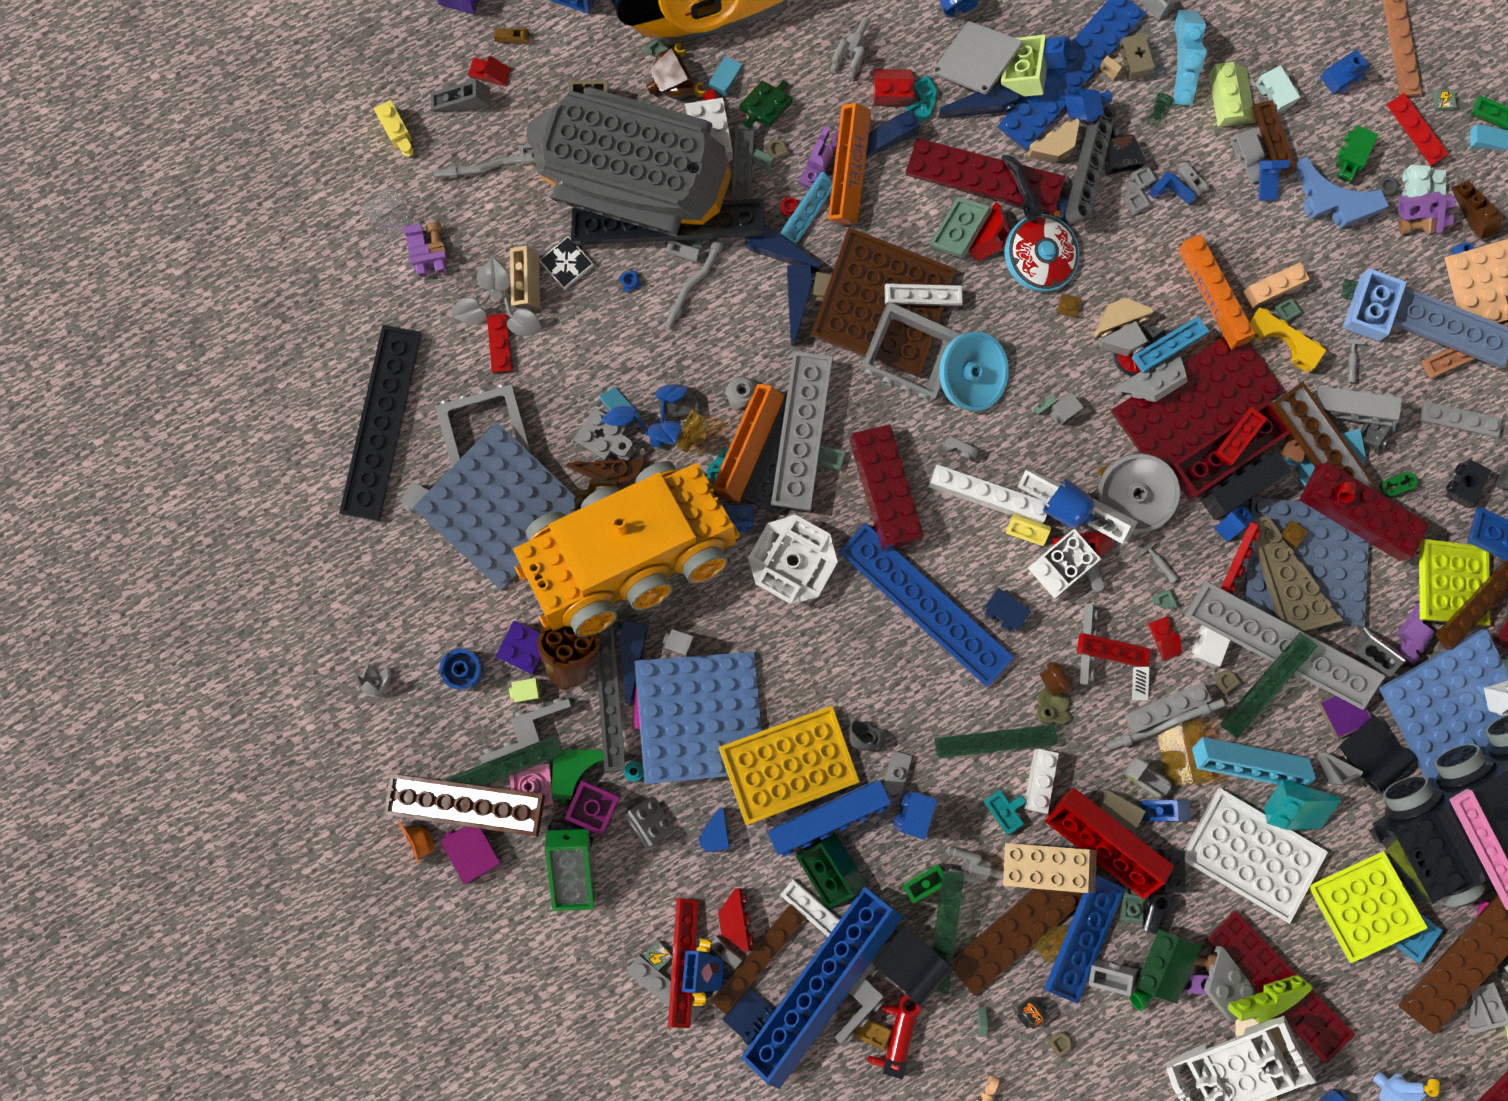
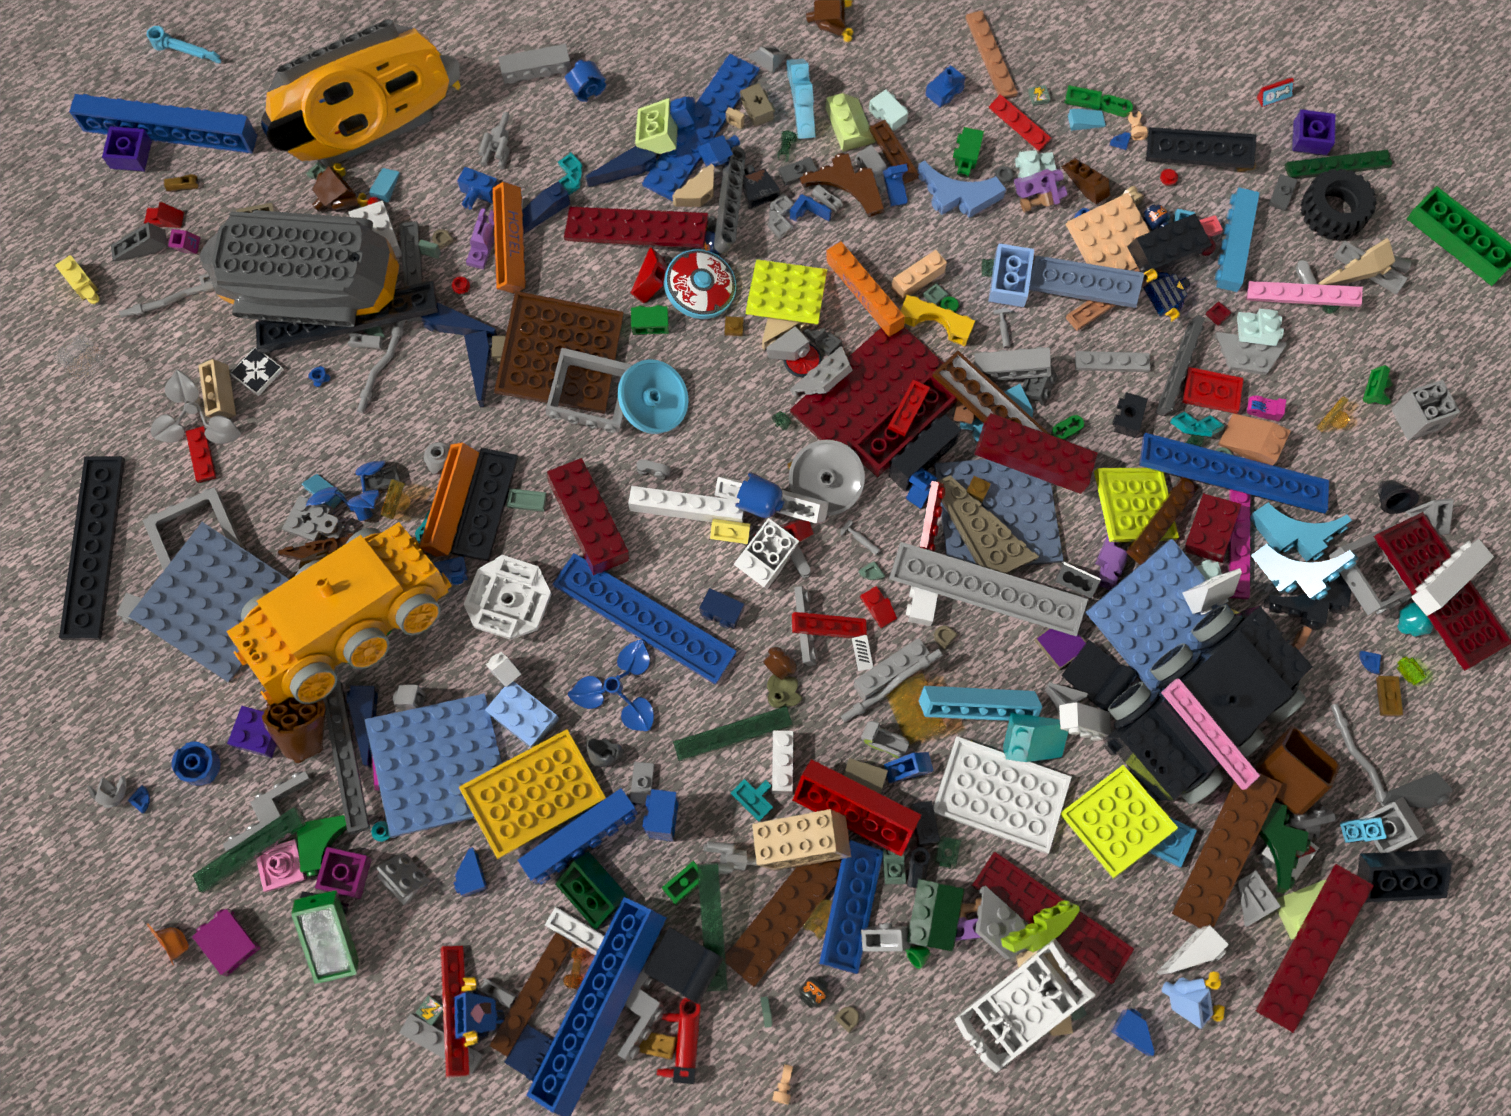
camera: 10 degrees left, 10 degrees down
(402, 692) = (140, 799): none -> blue tile
(423, 254) = (117, 386): medium lavender hips -> none
(464, 805) = (211, 894): piece -> none
(509, 105) = (184, 241): none -> magenta brick
(525, 690) = (263, 773): yellowish green brick -> none
(735, 920) = (502, 958): red slope -> none
(765, 103) = (425, 200): dark green plate -> none
(779, 634) = (503, 669): none -> white slope
(789, 681) = (522, 714): none -> light blue brick
(801, 431) = (499, 480): light grey plate -> none
(801, 954) = (574, 979): none -> clear orange bar
(807, 209) = (477, 284): medium azure tile -> none
(823, 98) = (476, 186): none -> blue brick
(857, 672) = (589, 690): none -> blue plant
(892, 87) = (540, 168): red slope -> none
(923, 295) = (596, 338): white tile -> none
(960, 227) = (621, 274): sand green plate -> none
(977, 57) = (612, 129): light grey piece -> none
(982, 283) = (649, 320): none -> green brick
(1031, 207) = (680, 243): black piece -> none
(1050, 401) = (730, 414): sand green tile -> none
(1065, 409) = (746, 416): light grey brick -> none
(1101, 419) = (781, 420): none -> clear green piece
(1132, 279) = (786, 291): none -> neon yellow plate
(1166, 141) = (792, 172): none -> dark grey plate
(1170, 344) = (832, 342): dark azure plate -> none
(1182, 900) = (951, 844): none -> clear green brick
(1233, 173) = (842, 175): none -> reddish brown arch
(1268, 685) = (980, 629): clear green plate -> none
(1301, 323) = (950, 303): none -> green tile
(1348, 490) = (1012, 433): red piece -> none
(1355, 801) = (1085, 721): none -> white brick
(1415, 1050) = (1201, 947): none -> white slope

